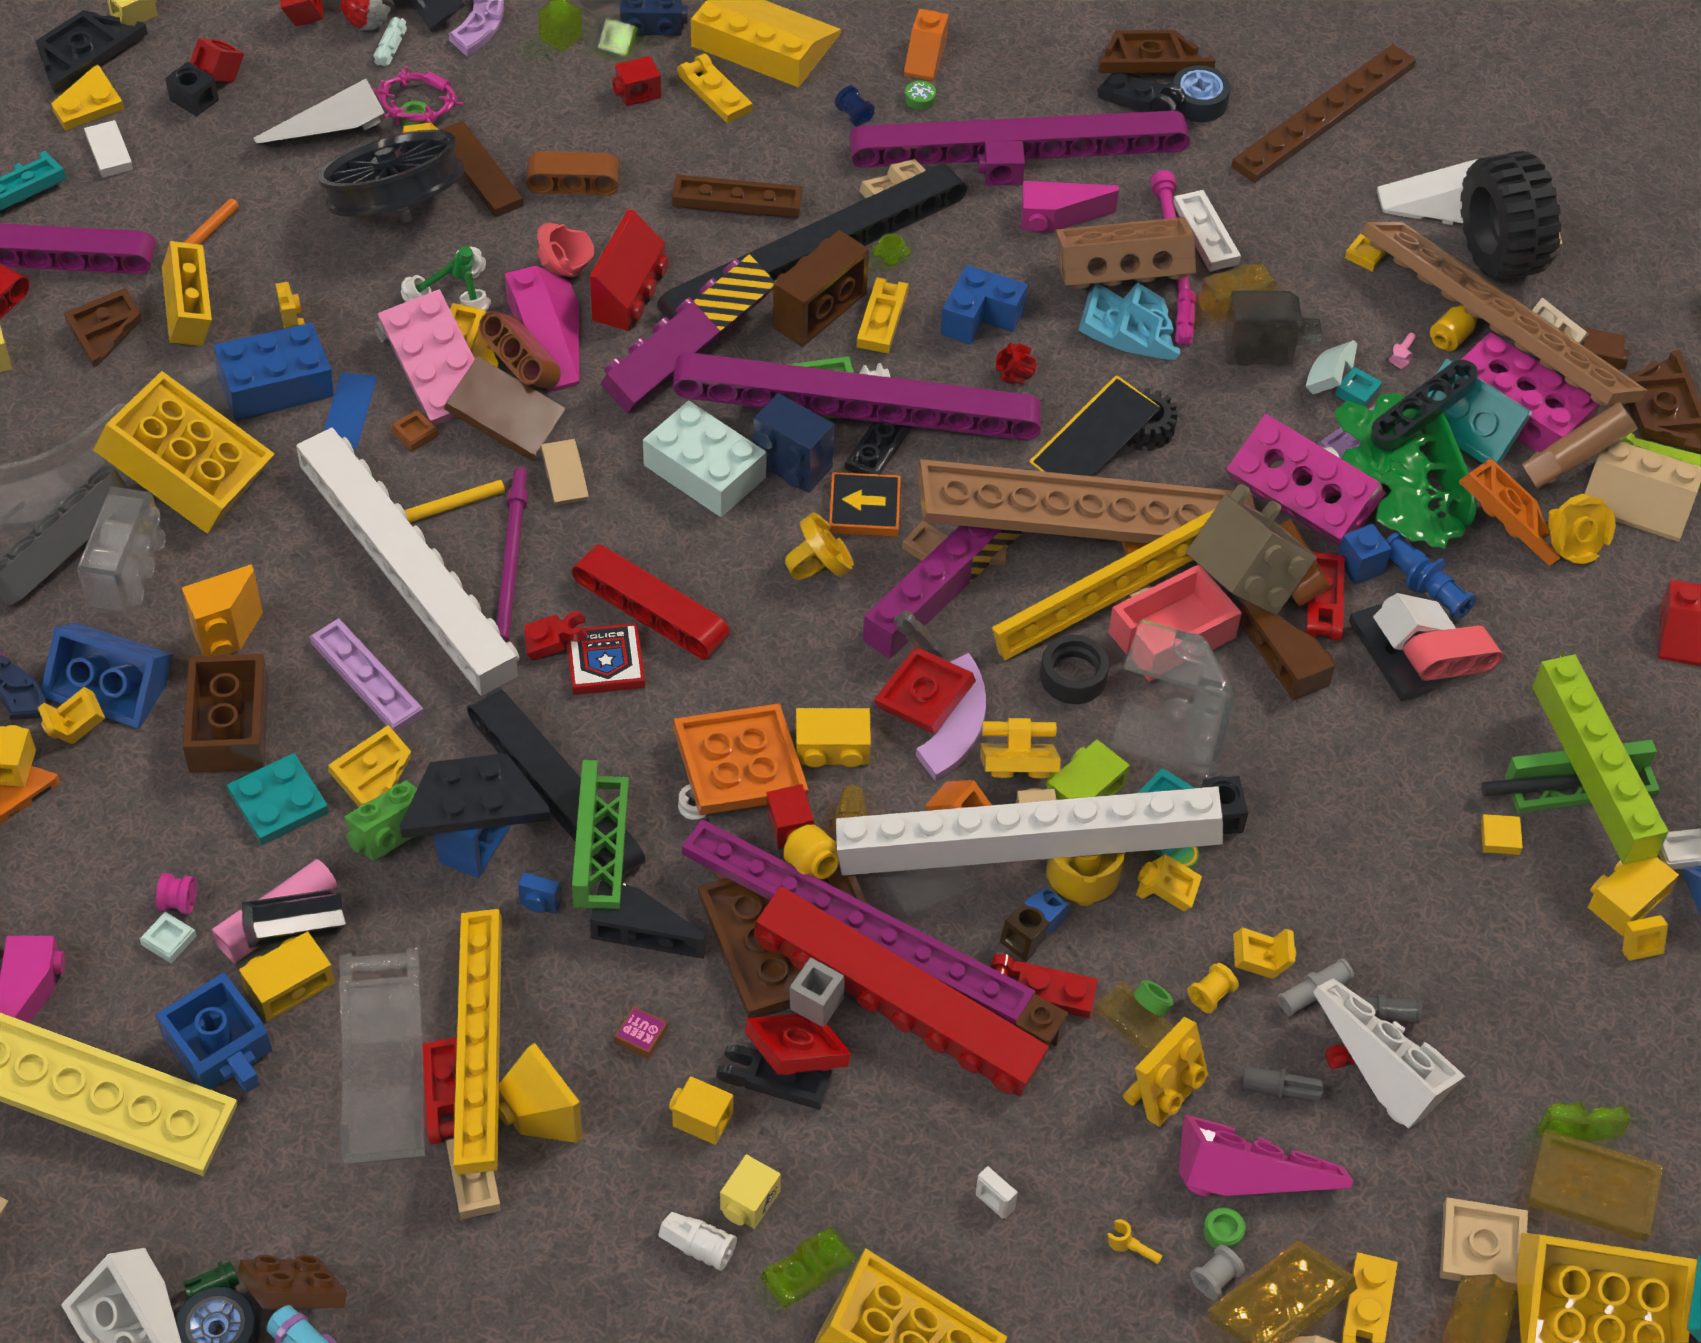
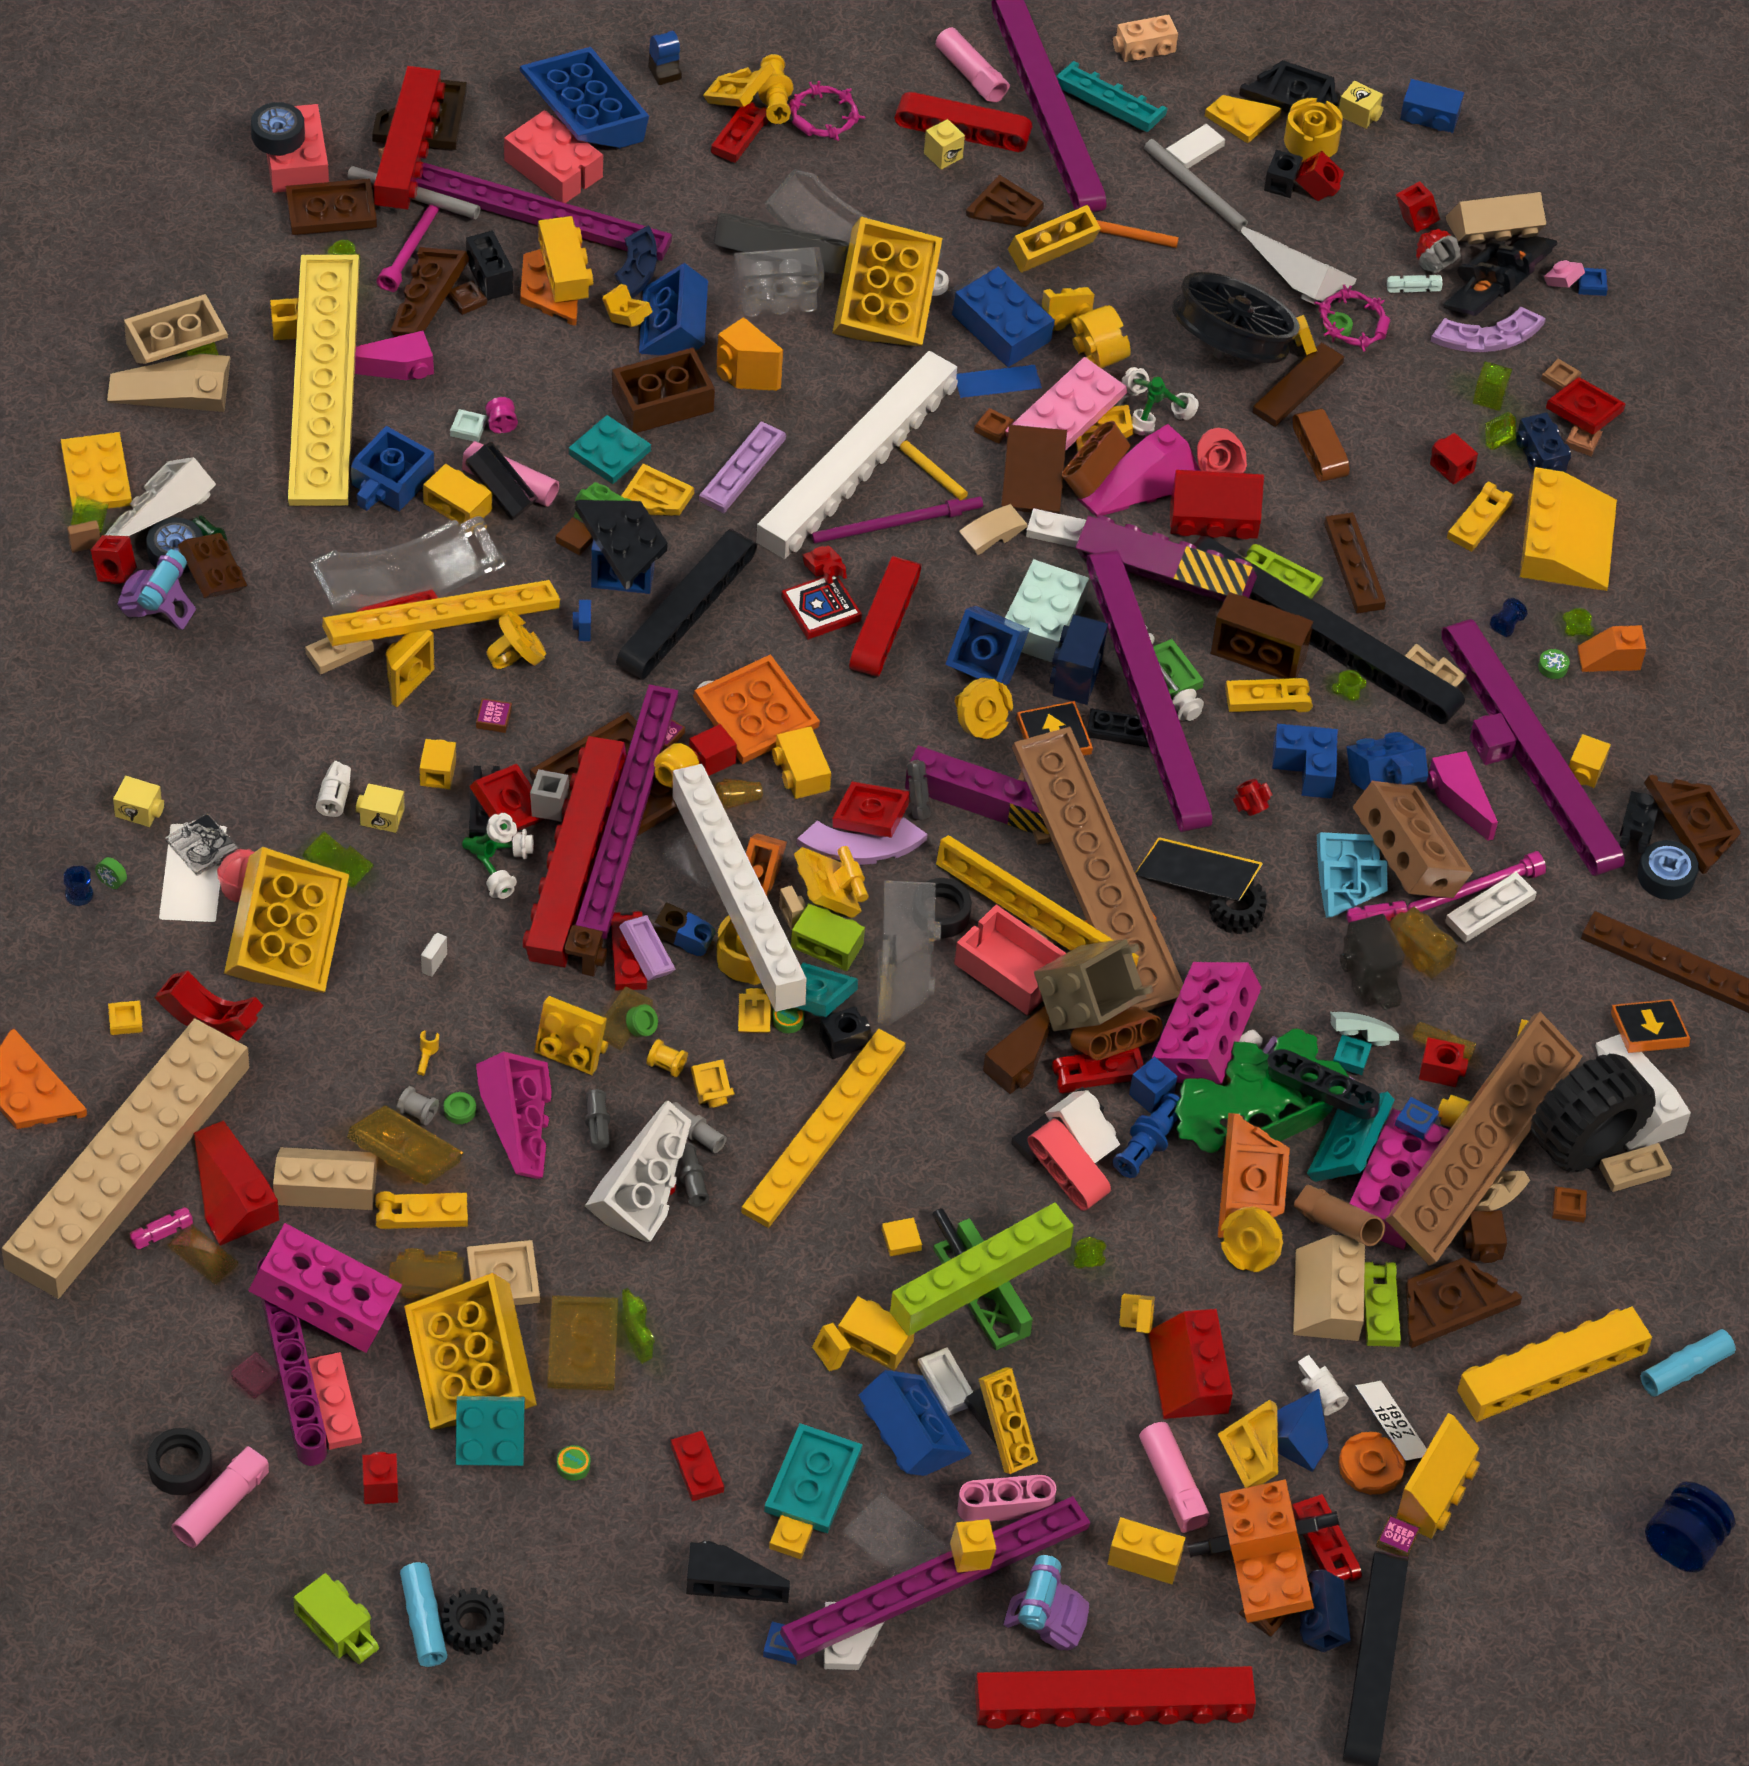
camera: 70 degrees right, 0 degrees up
(149, 45) = (1313, 128): none -> yellow brick
(161, 164) = (1195, 184): none -> light grey piece
(350, 294) = (1100, 336): none -> yellow brick
(398, 870) = (574, 536): none -> dark orange tile
(552, 965) = (516, 643): none -> yellow tile
(585, 417) = (1055, 527): none -> white plate
(585, 834) = (632, 624): bright green fence -> none
(645, 924) = (586, 683): black slope -> none
(724, 251) = (1285, 570): none -> lime plate
(747, 515) = (987, 645): none -> blue brick
(871, 1051) = (499, 835): none -> white plant
(878, 61) = (1579, 616): none -> clear neon green plate
(1024, 238) = (1387, 760): none -> blue hinge
(1054, 100) = (1589, 760): none -> yellow brick
(1056, 961) = (647, 947): none -> lavender tile
(1344, 869) = (823, 1128): none -> yellow plate
(1358, 314) = (1423, 1031): none -> clear yellow axle
(1381, 162) = (1650, 1026): none -> tile
(1387, 322) = (1440, 1052): none -> red brick
(1402, 355) = (1414, 1080): bright pink hand -> none
(1480, 347) = (1417, 1118): none -> blue tile
(1567, 287) = (1569, 1204): none -> dark orange tile
(1651, 646) = (1137, 1312): none -> yellow bracket

